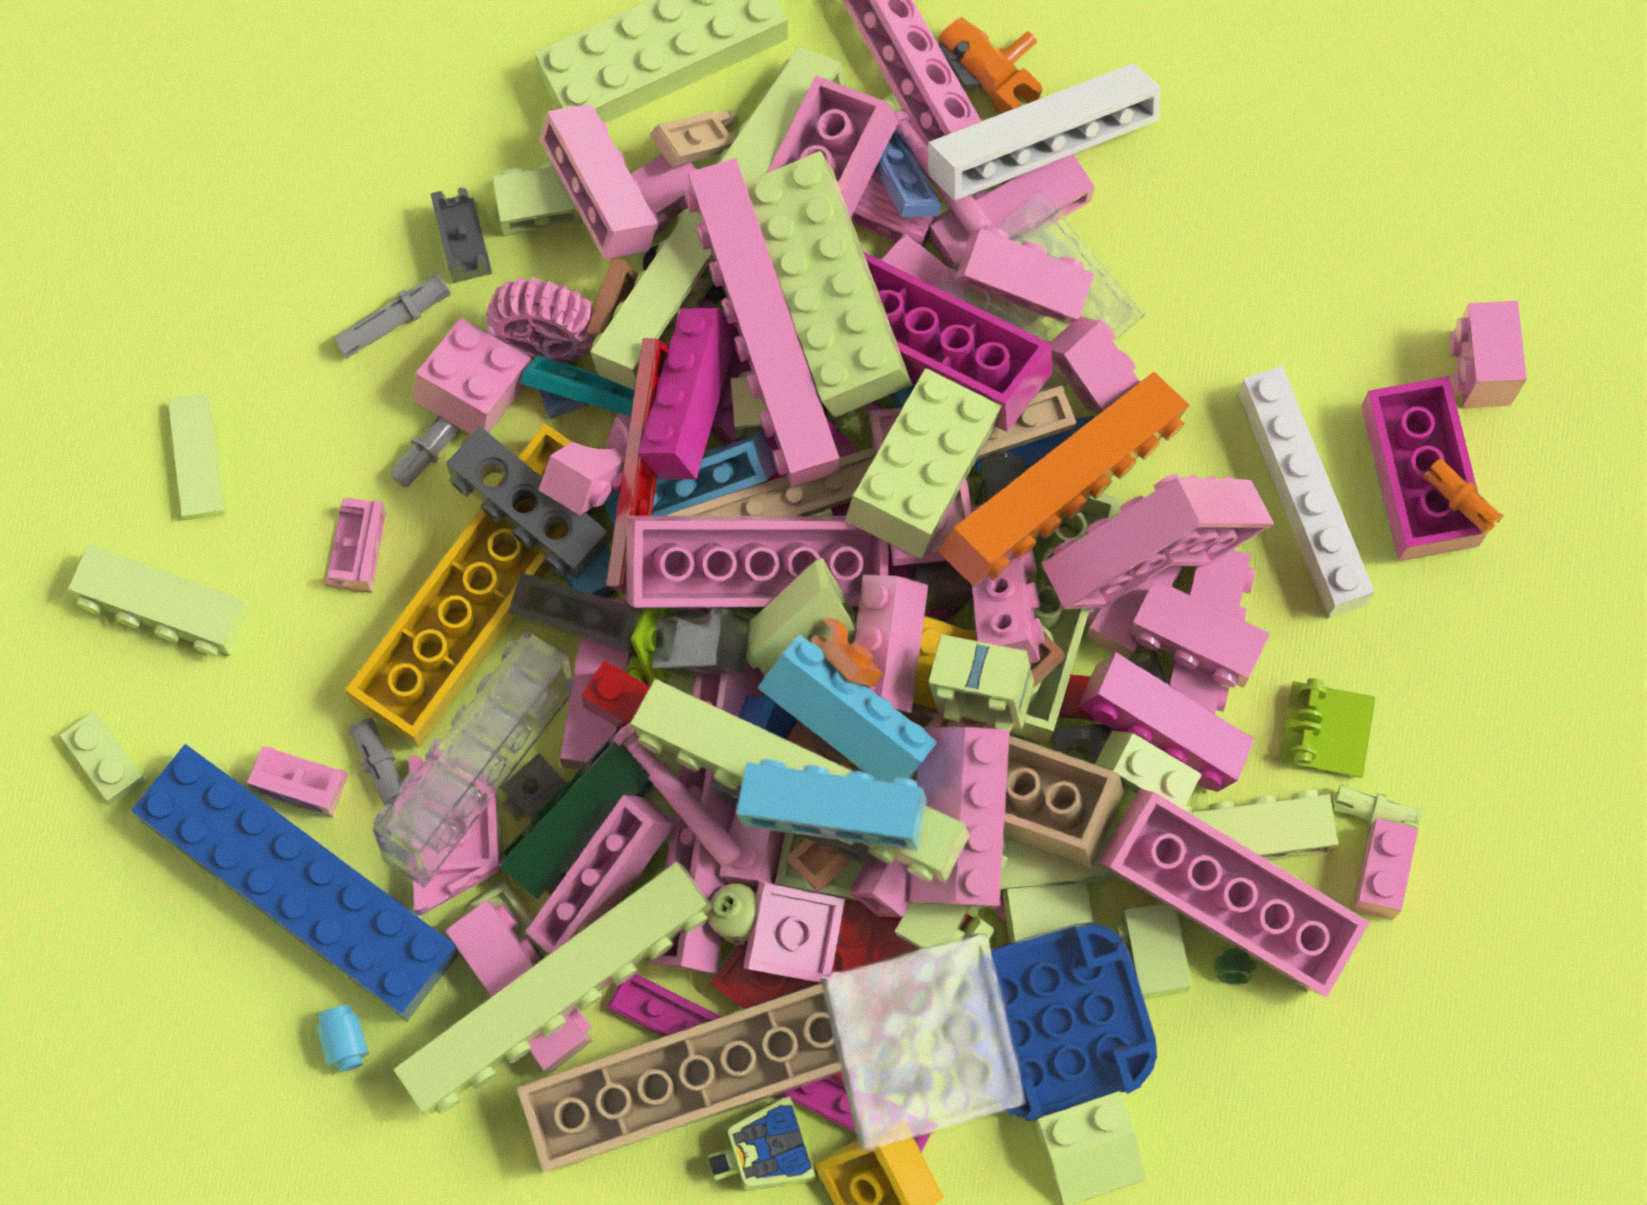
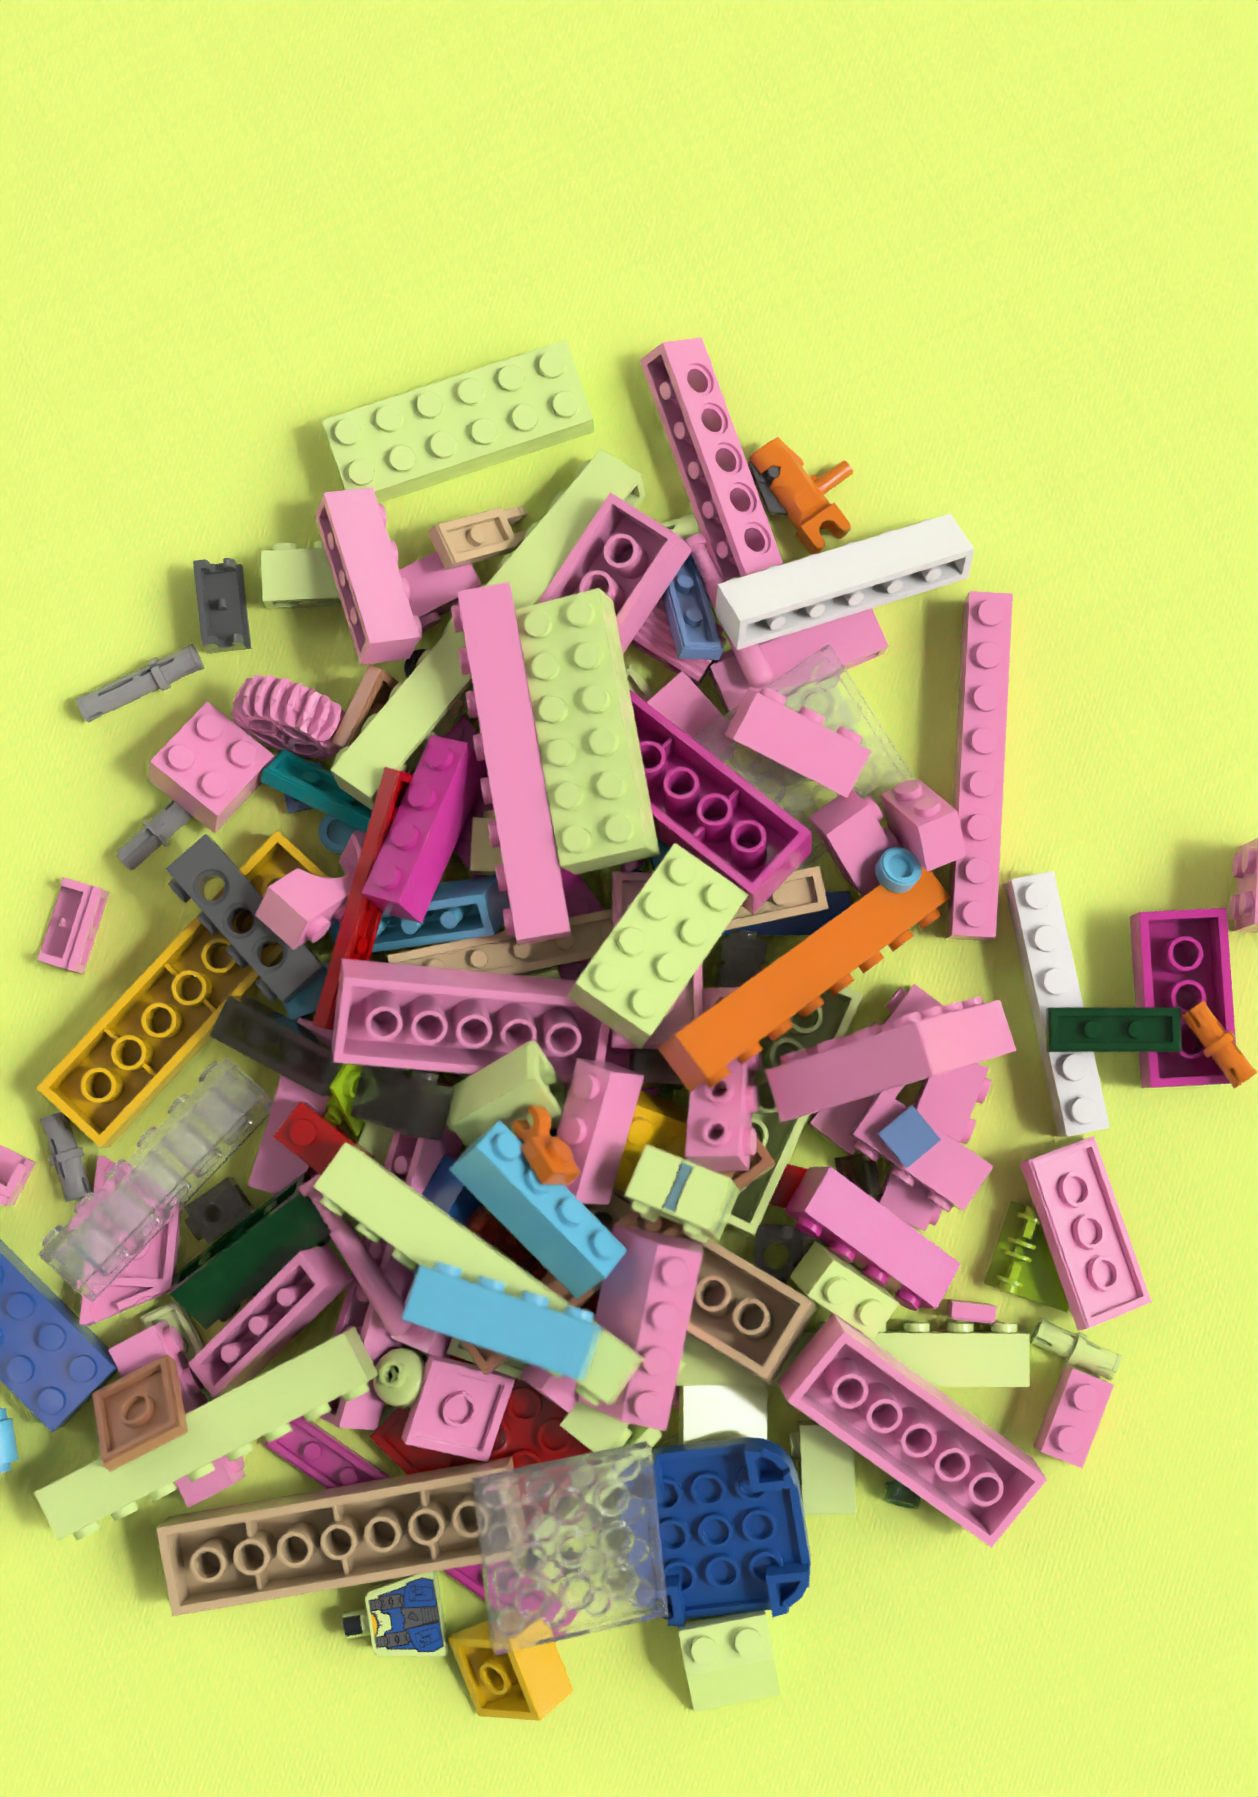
camera: 10 degrees right, 10 degrees up
(486, 976) = (139, 1413): none -> nougat tile
(596, 426) = (334, 834): none -> medium azure tile
(1136, 382) = (898, 870): none -> medium azure tile
(1153, 338) = (924, 824): none -> bright pink brick
(1185, 614) = (909, 1136): none -> medium blue tile
(1197, 287) = (980, 764): none -> bright pink brick
(1278, 785) = (971, 1311): none -> bright pink tile
(1362, 498) = (1113, 1029): none -> dark green tile
(1368, 697) = (1085, 1233): none -> bright pink tile

